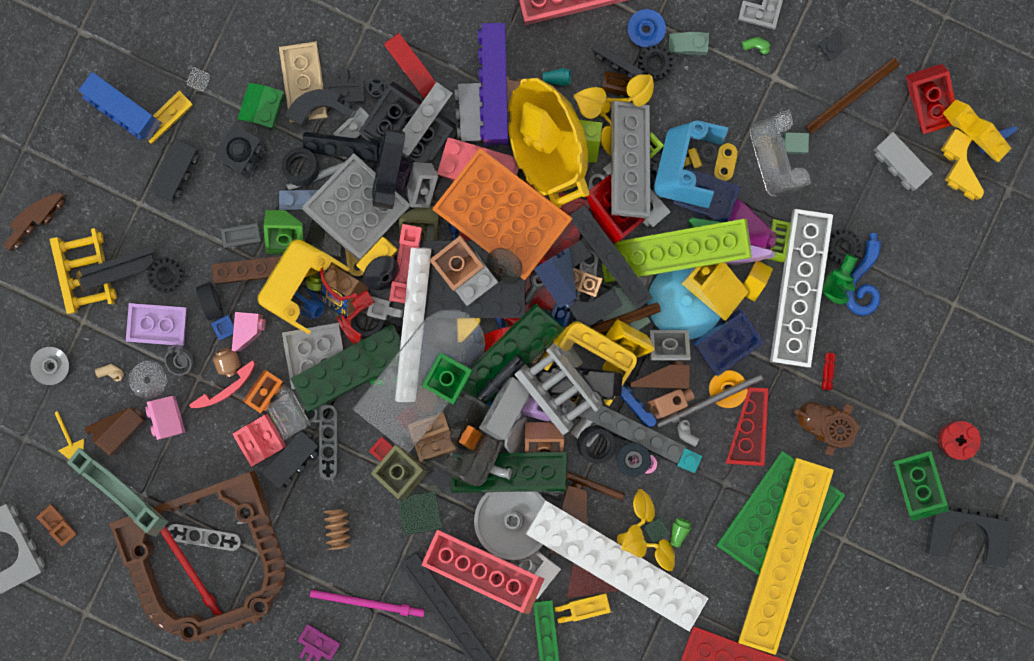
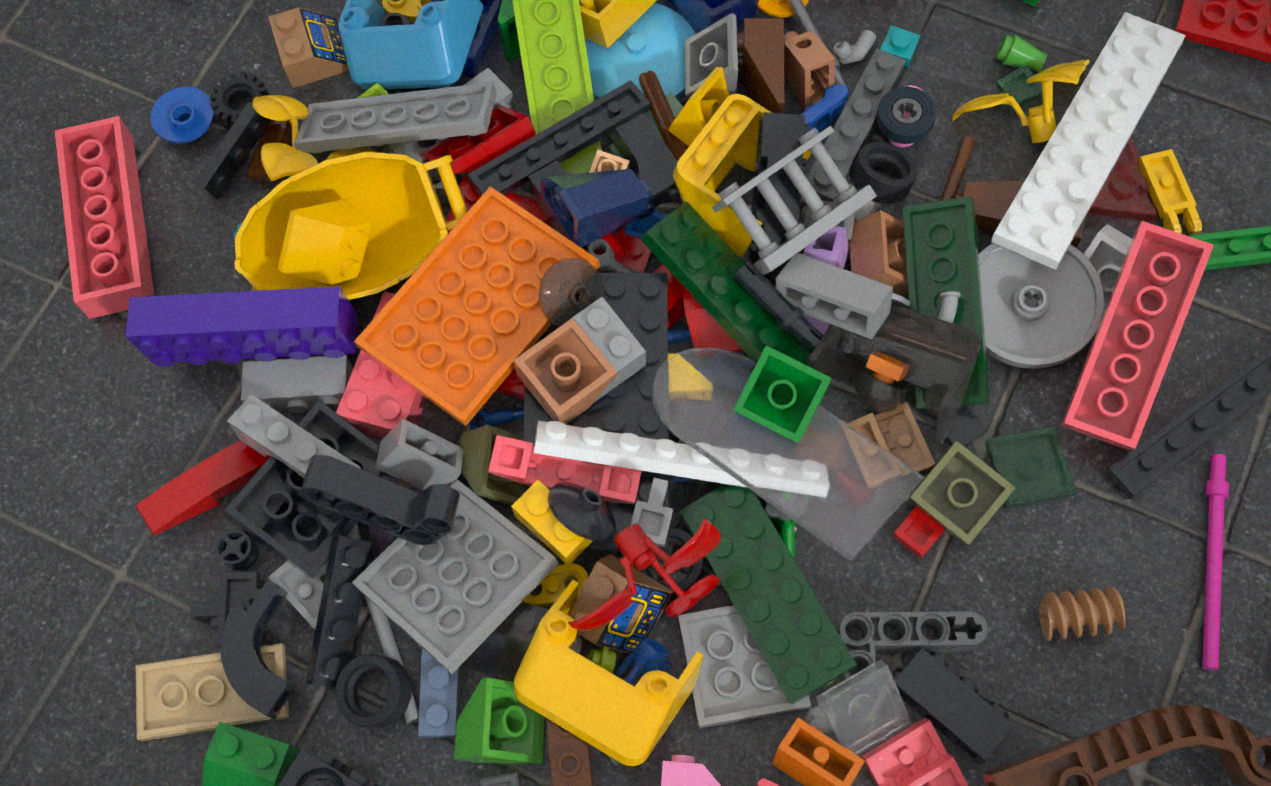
camera: 85 degrees left, 20 degrees down
(689, 43) = (214, 51): sand green slope -> none
(695, 101) = (308, 45): none -> medium nougat slope

